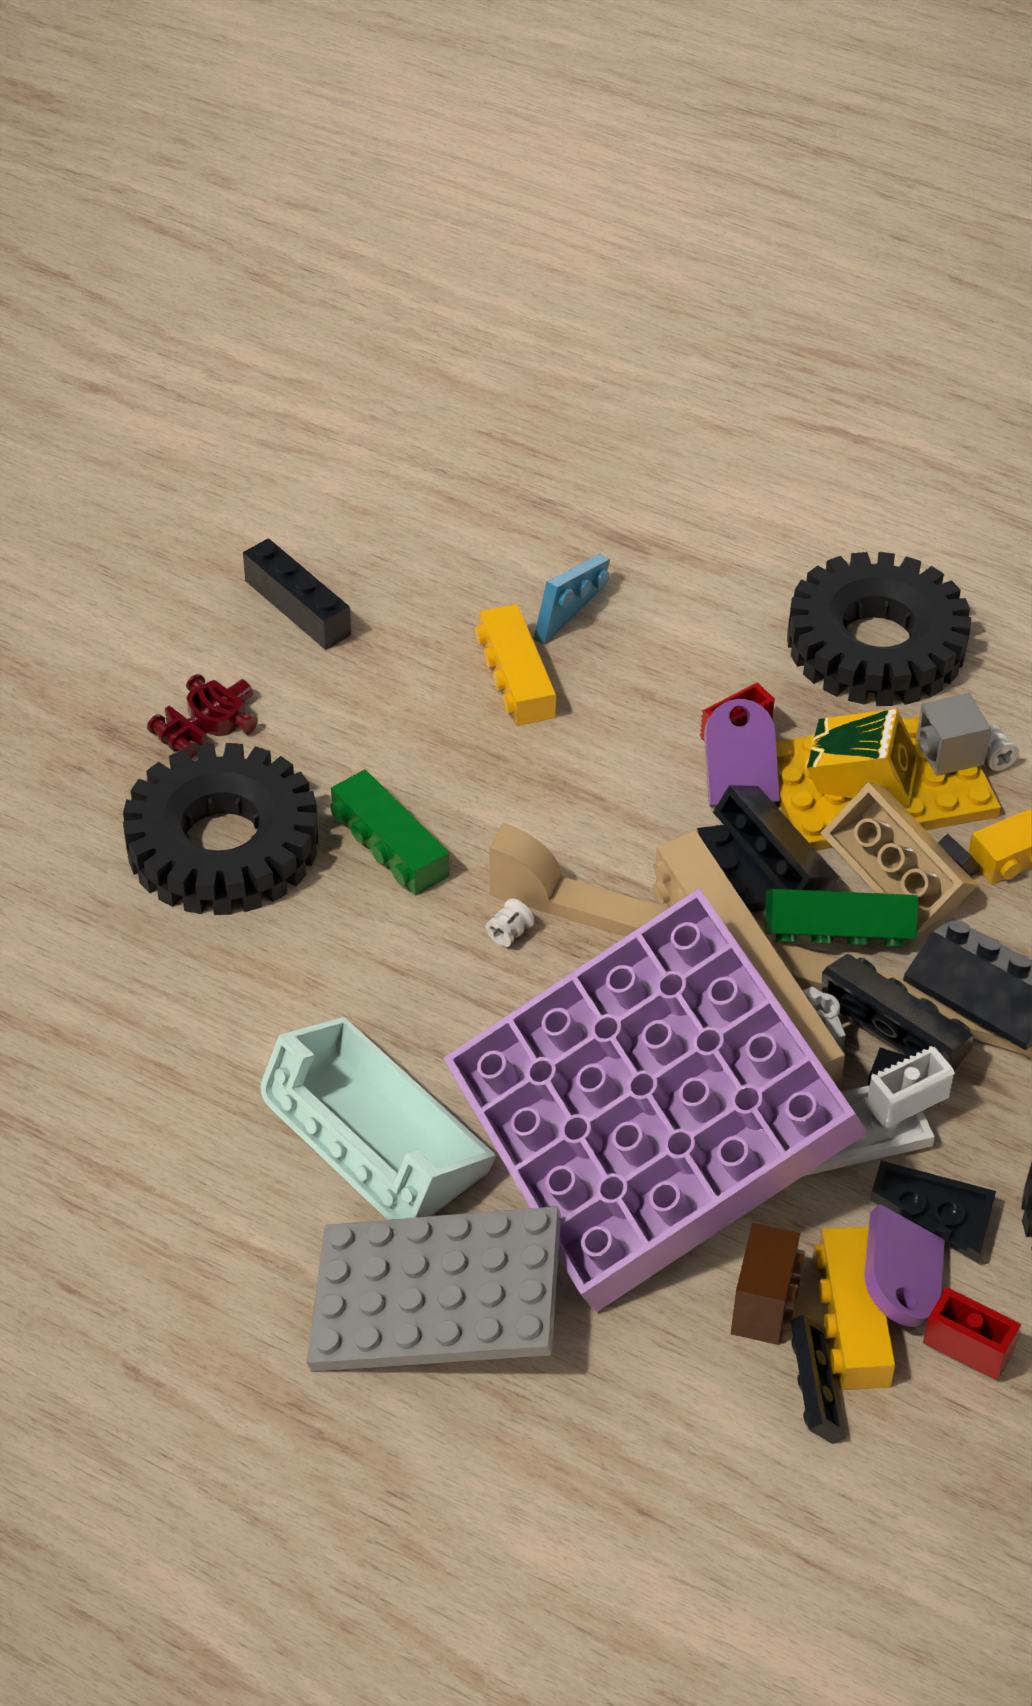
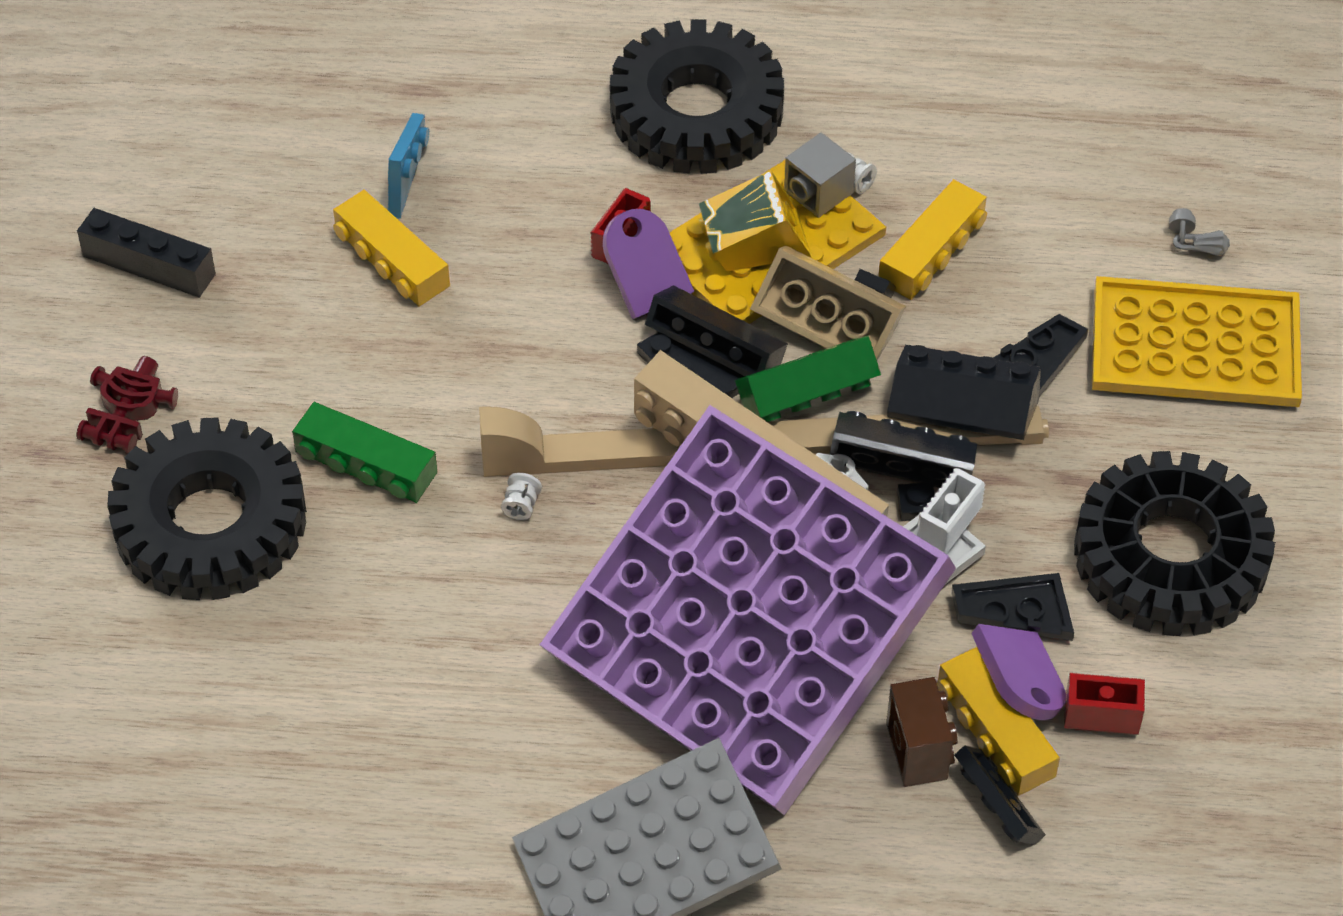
camera: 25 degrees left, 5 degrees up
(371, 1120) = (502, 727): light aqua windscreen -> none

